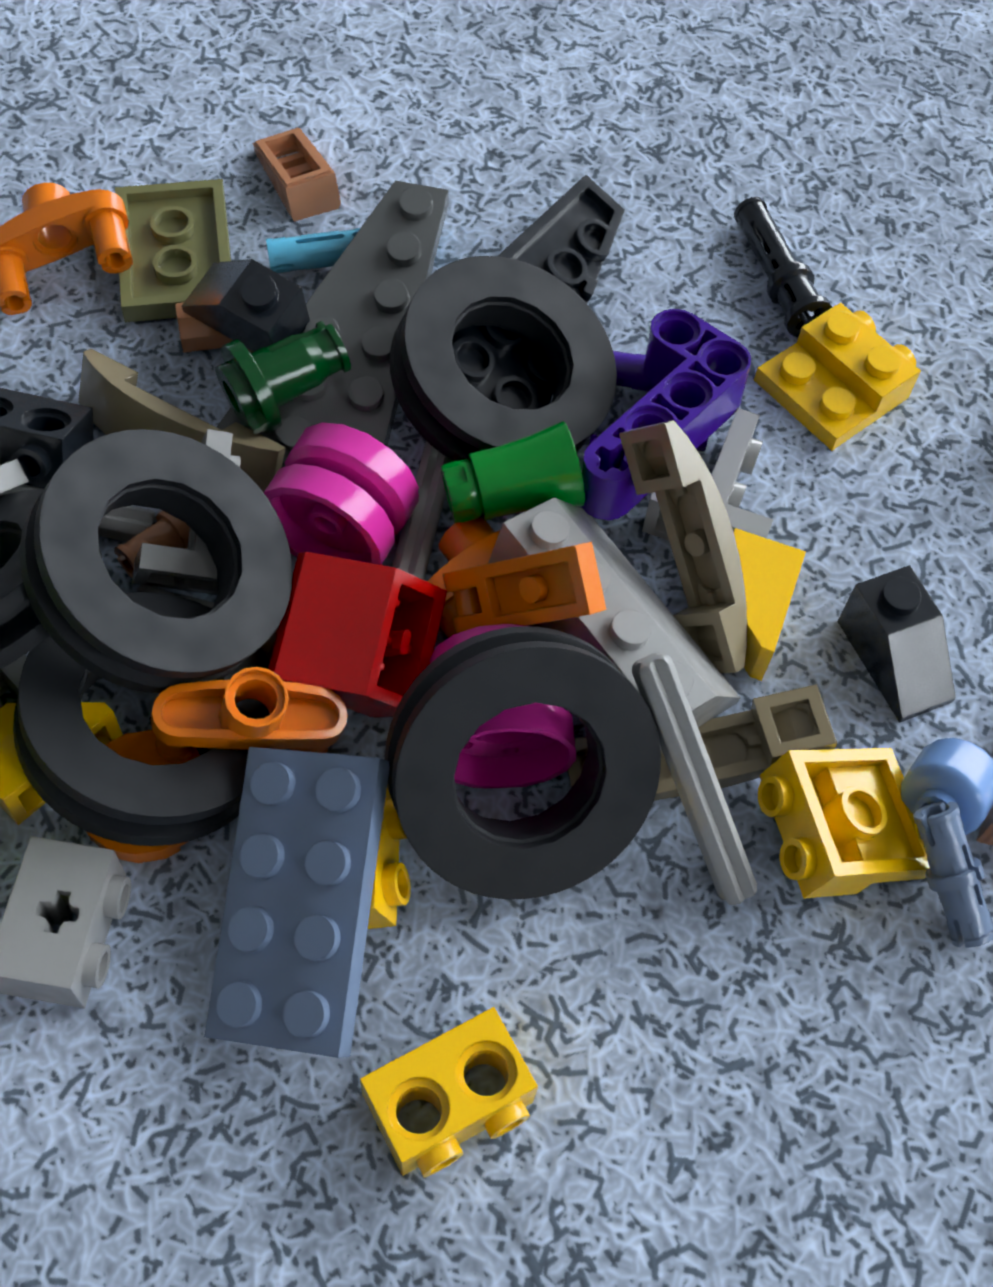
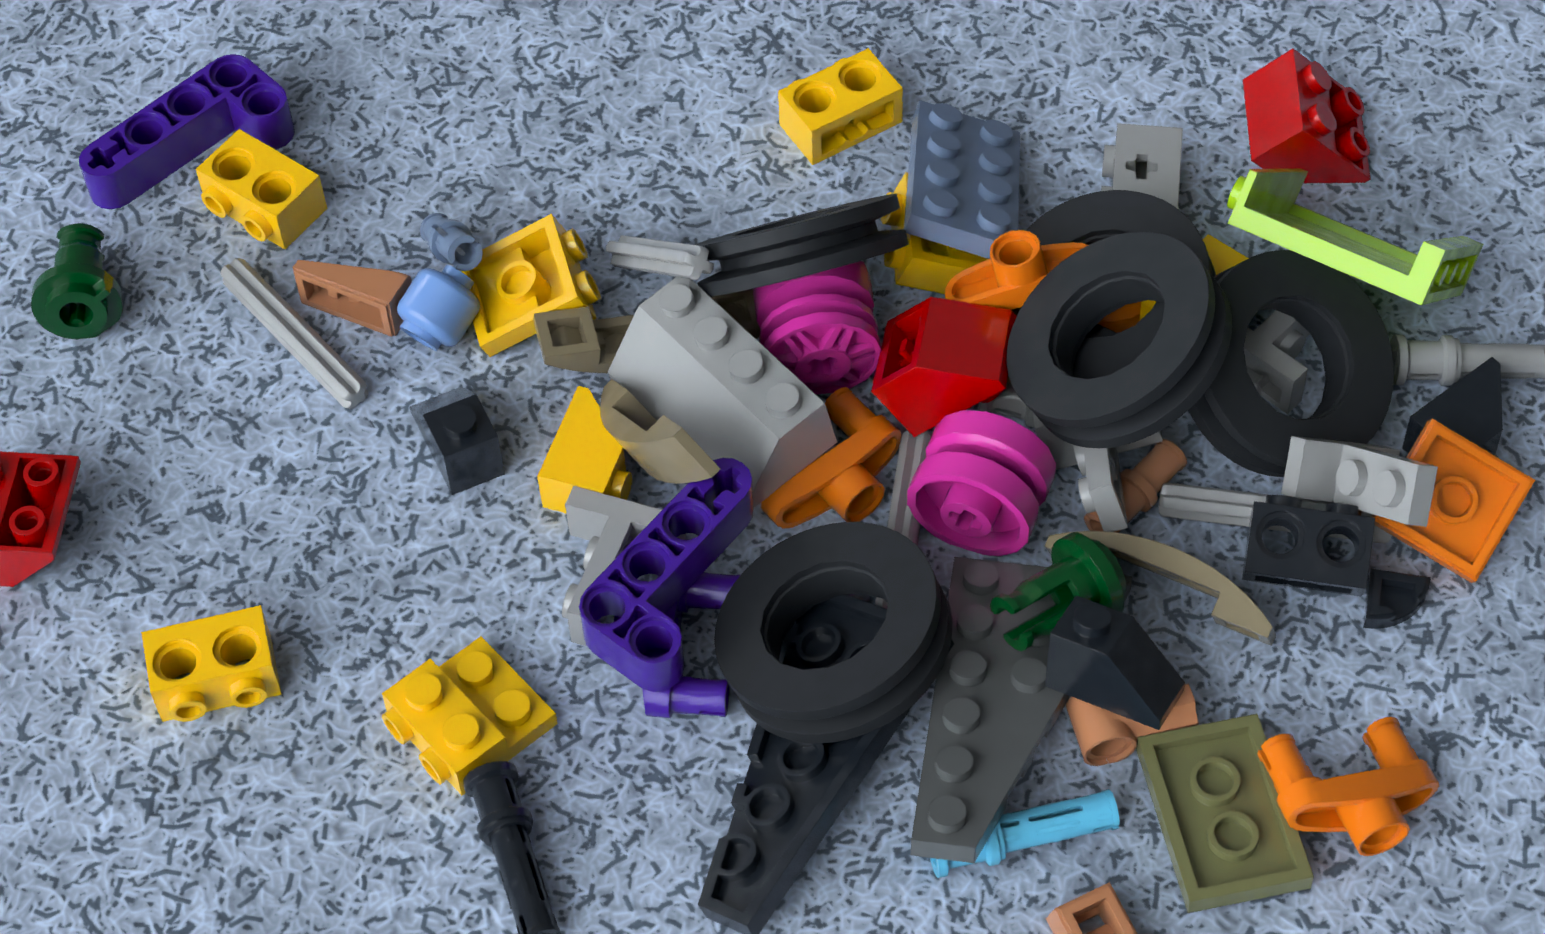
camera: 175 degrees left, 5 degrees down
(515, 476) = (815, 493): green plant -> none
(527, 589) = (807, 356): orange plate -> none

